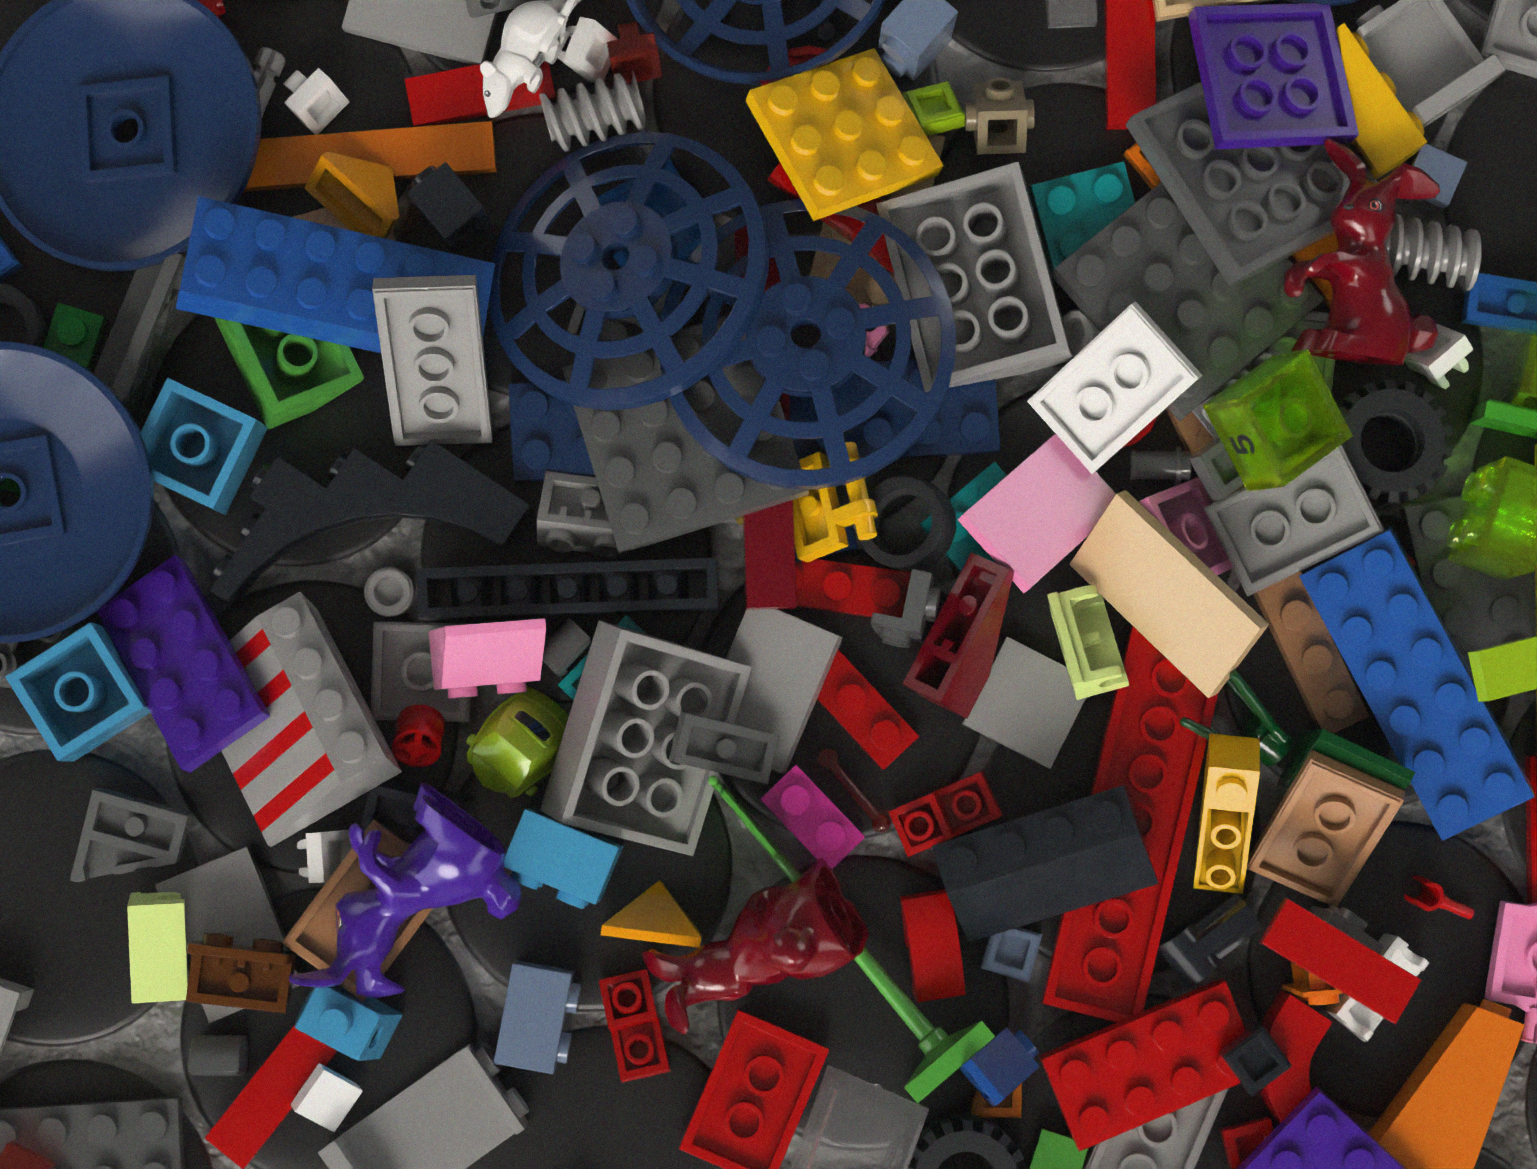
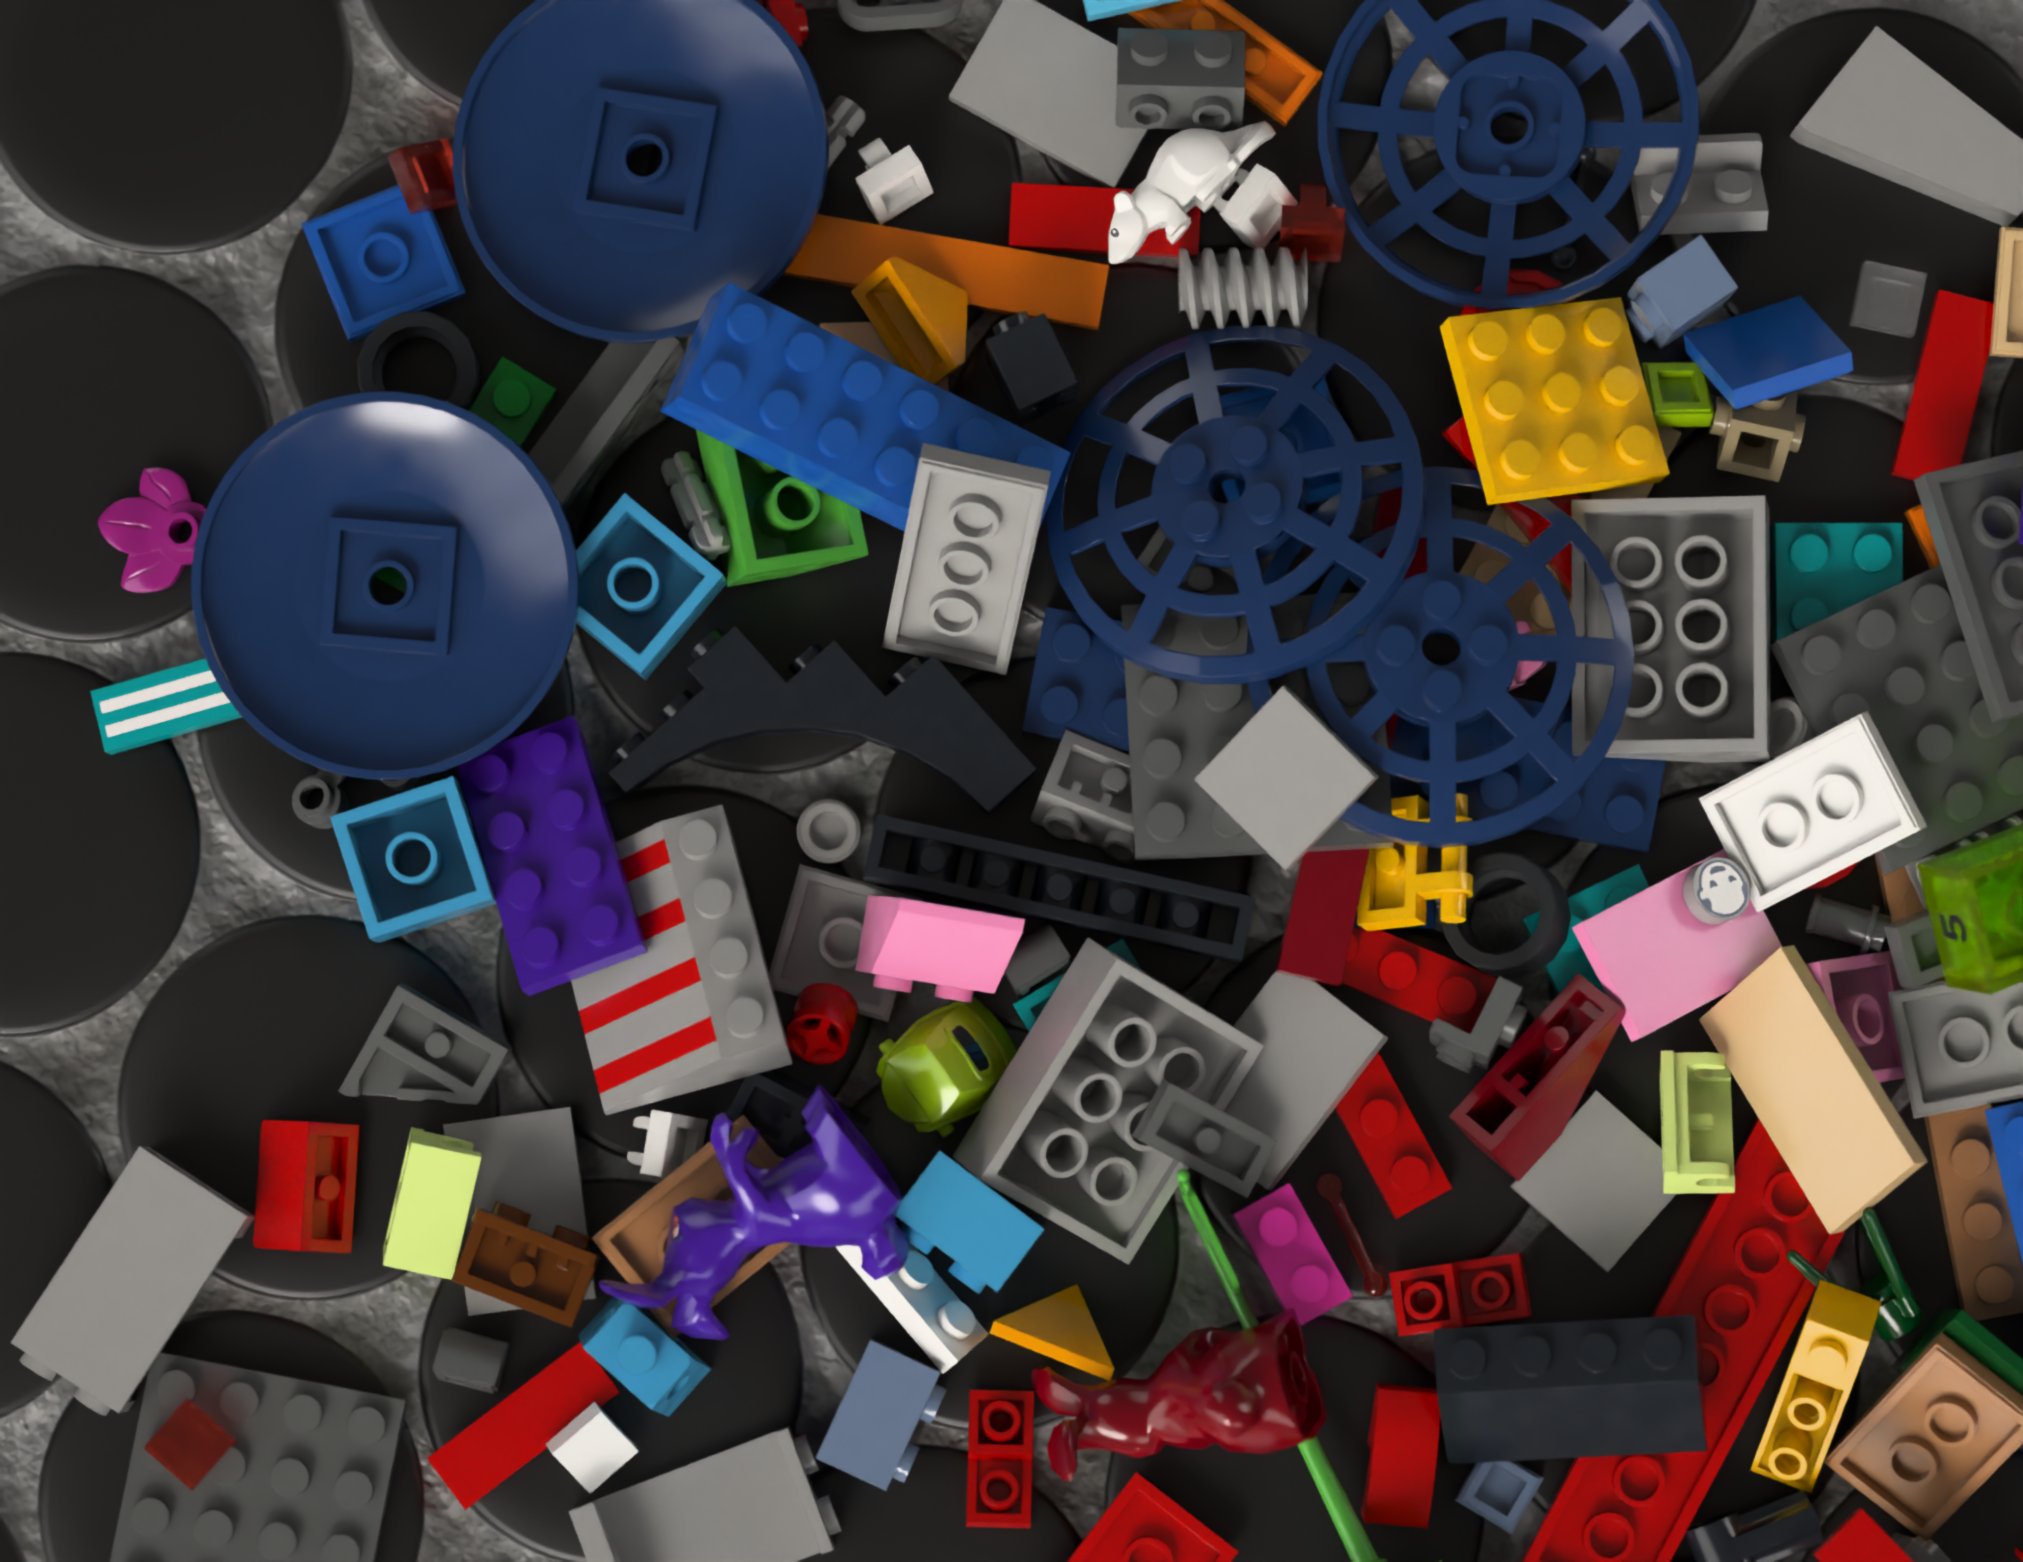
camera: 15 degrees right, 0 degrees up
(64, 957) = (306, 1186): none -> red panel
(227, 375) = (695, 506): none -> light grey axle
(549, 927) = (924, 1307): none -> white plate
(714, 461) = (1286, 778): none -> light grey tile
(993, 59) = (1768, 352): none -> blue tile
(1057, 465) = (1716, 891): none -> tile

